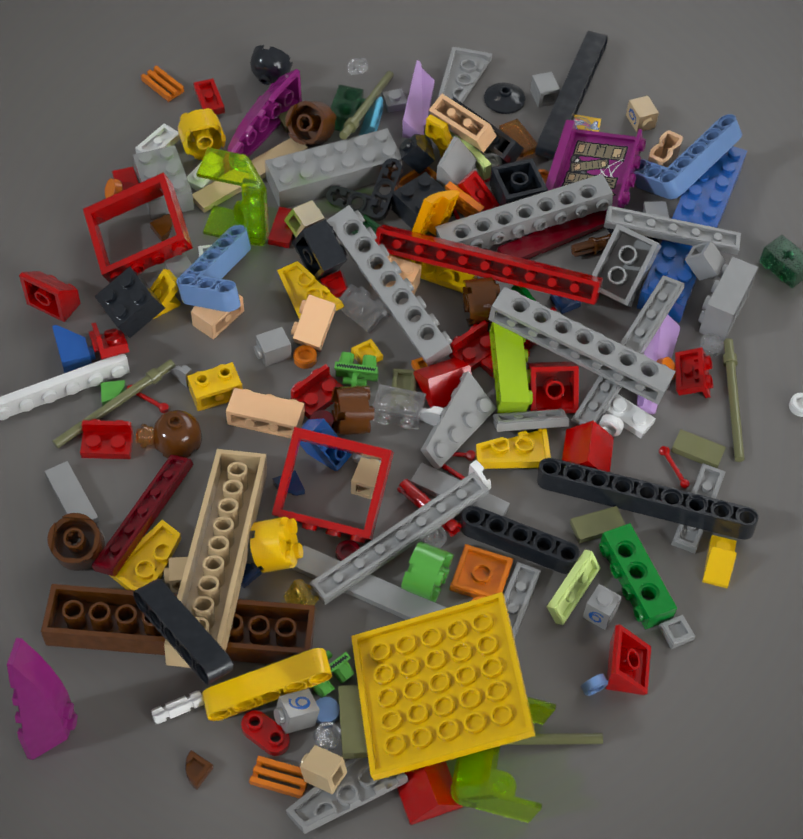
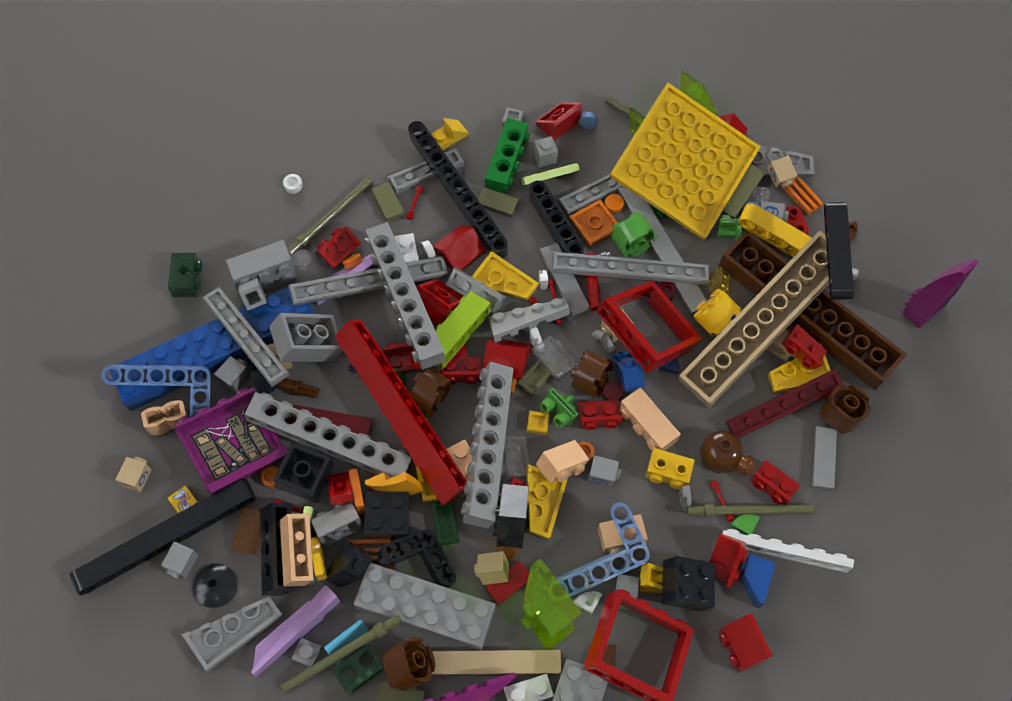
camera: 140 degrees left, 10 degrees up
(158, 562) = (804, 347): none -> red bracket

